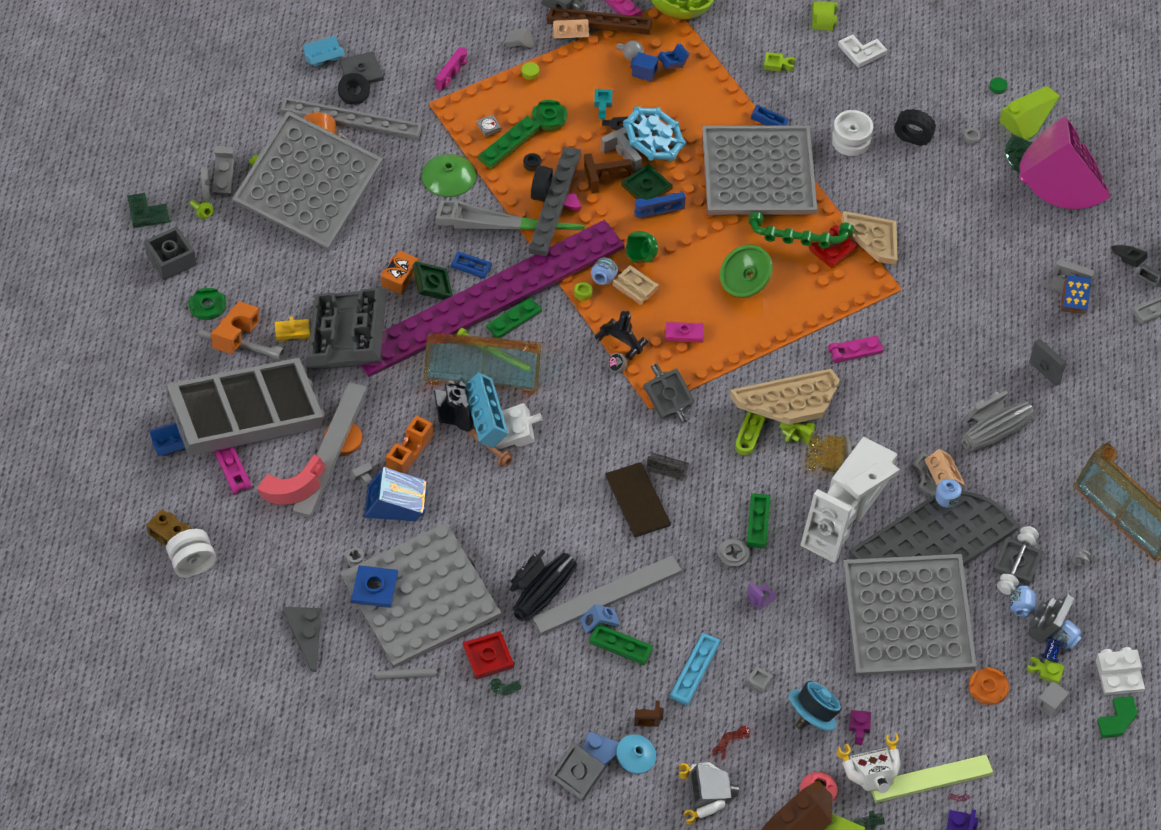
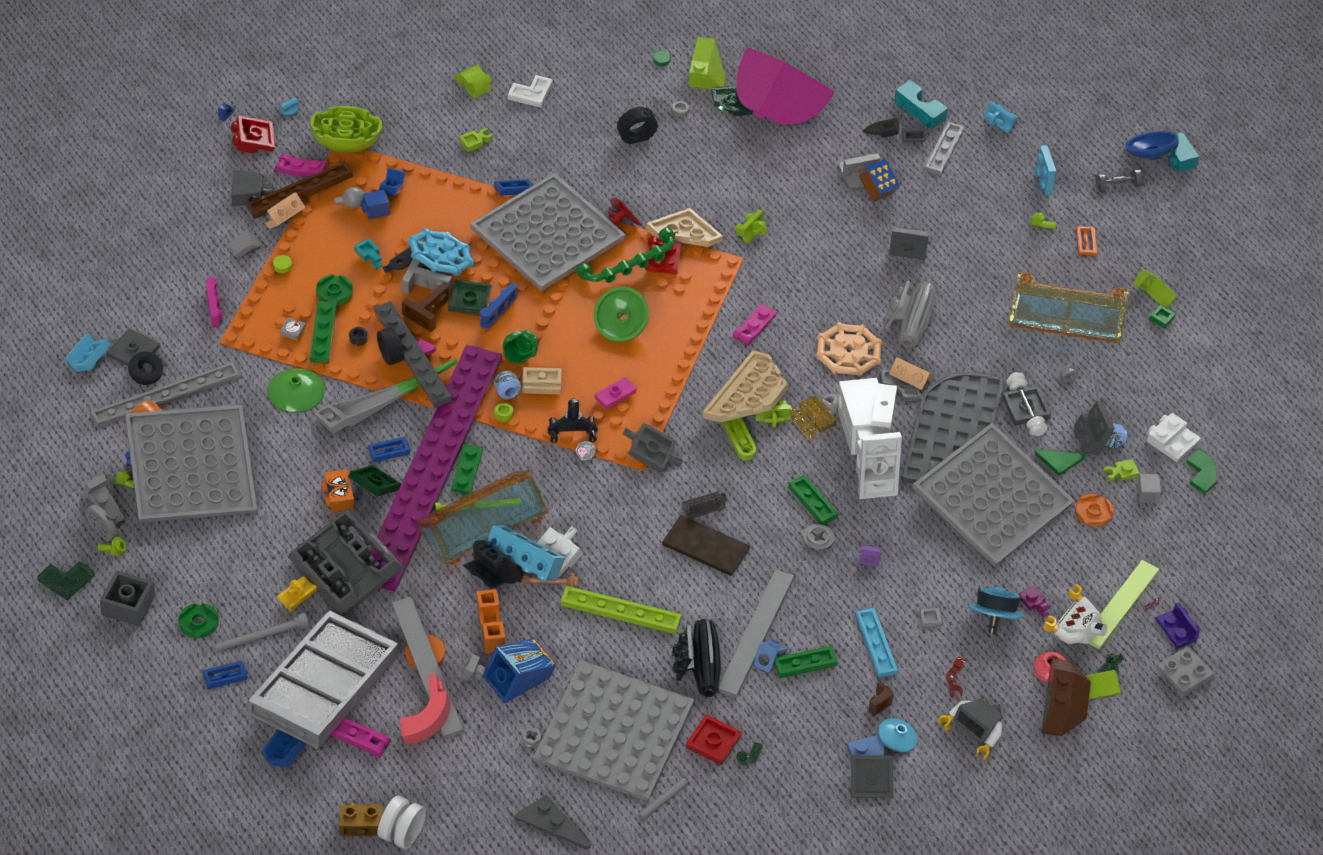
camera: 40 degrees left, 5 degrees down
(178, 358) = (225, 677): none -> blue tile
(228, 333) = (247, 622): orange arch -> none
(379, 597) = (576, 758): blue piece -> none
(519, 505) = (620, 609): none -> lime plate
(830, 190) = (622, 212): none -> red shield
(852, 133) = (591, 159): white wheel -> none
(913, 408) = (855, 342): none -> light nougat plate
(933, 268) = (754, 226): none -> lime hips
(948, 493) = (936, 385): light blue head -> none
(1001, 626) = (1059, 461): none -> green tile
(1022, 601) = (1059, 431): light blue head -> none
(1052, 650) = (1115, 452): clear blue bush -> none

